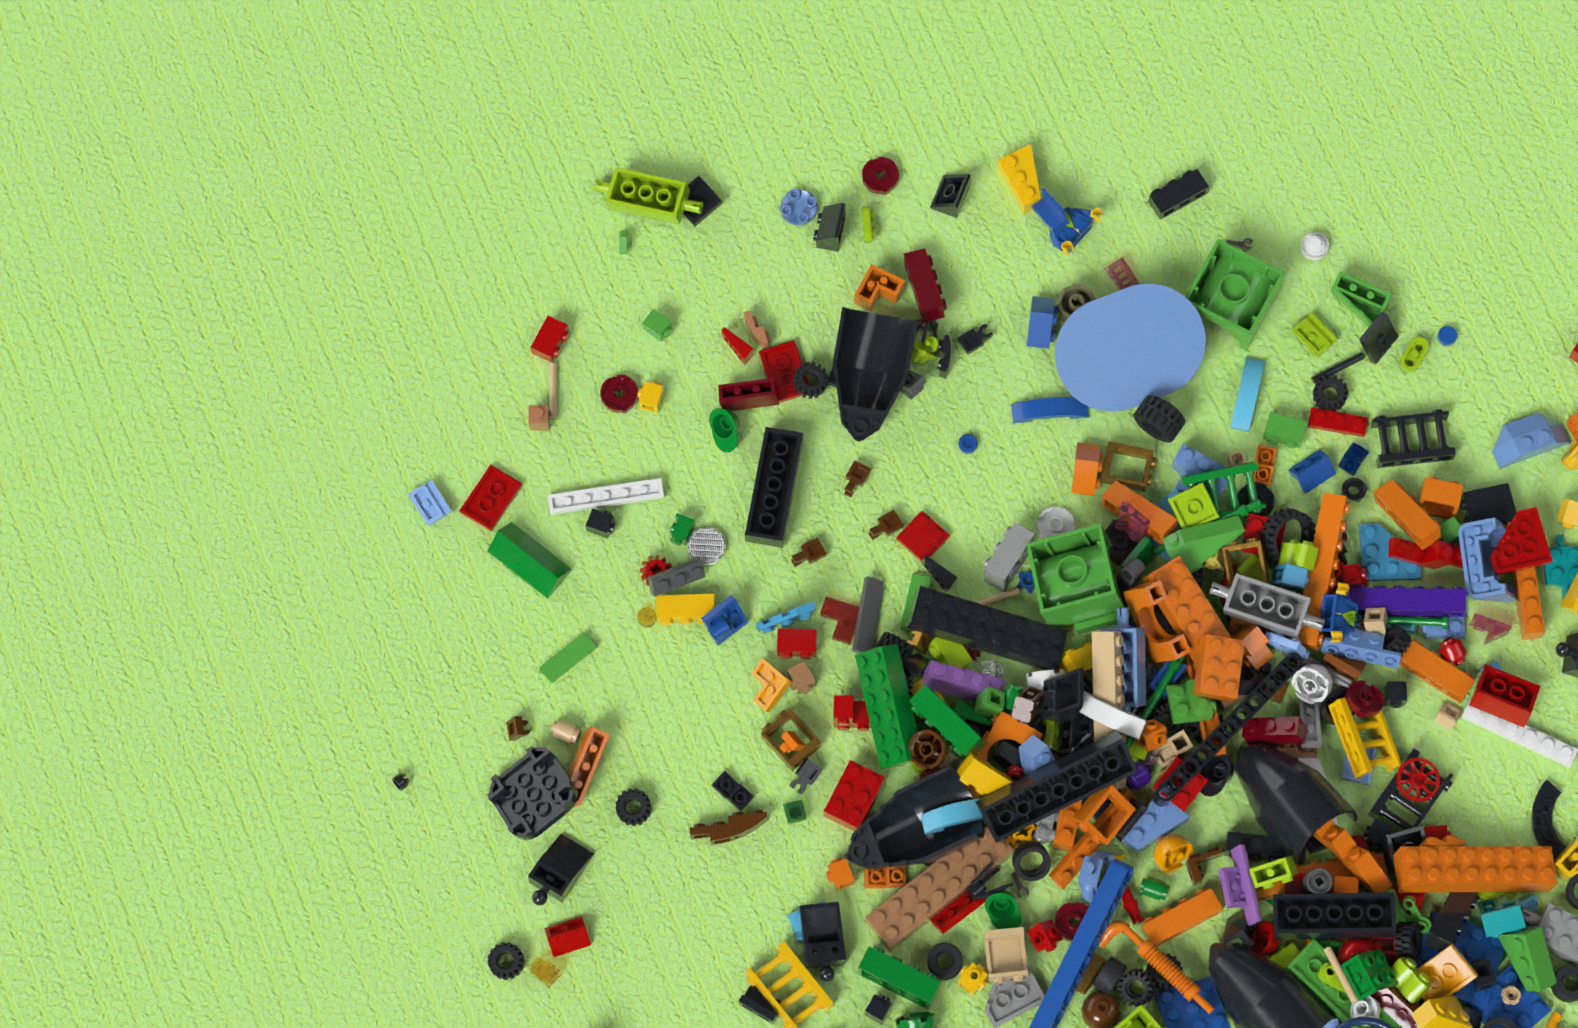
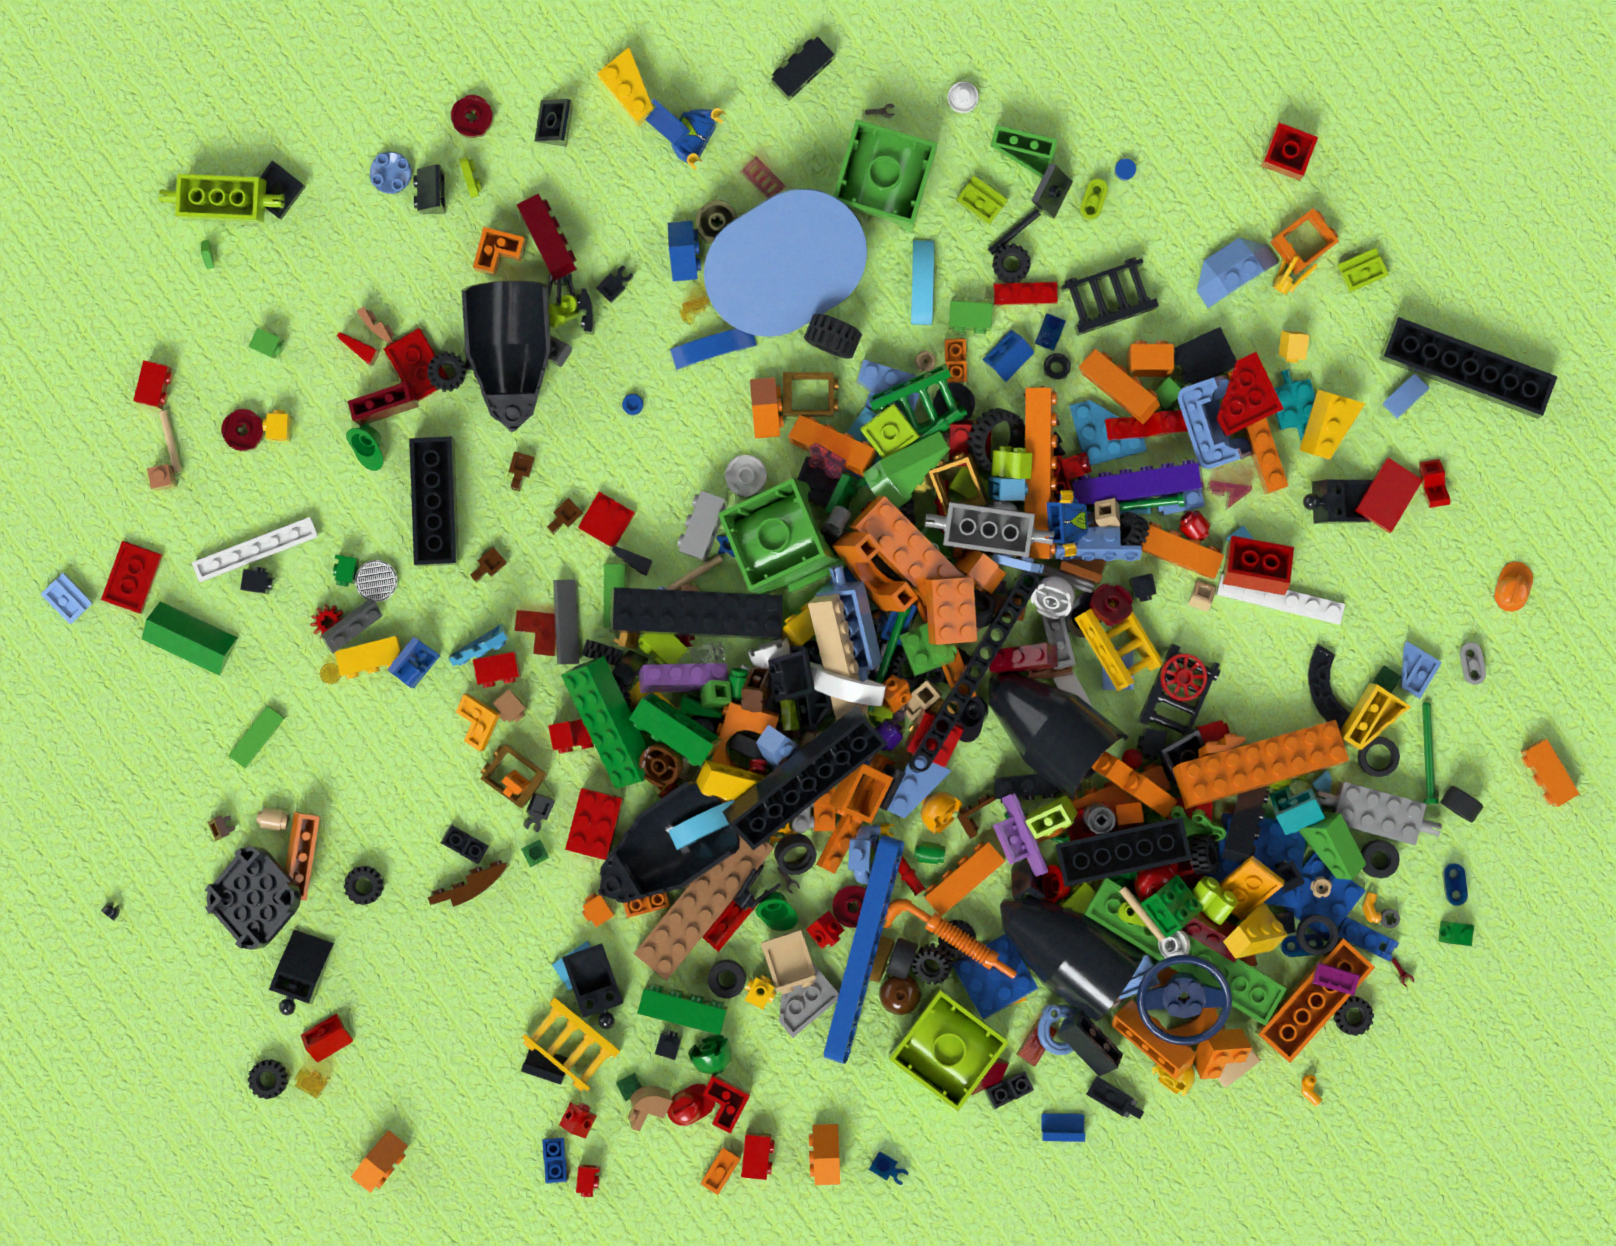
camera: 10 degrees left, 15 degrees up
(1042, 371) = (696, 306): none -> clear yellow bracket

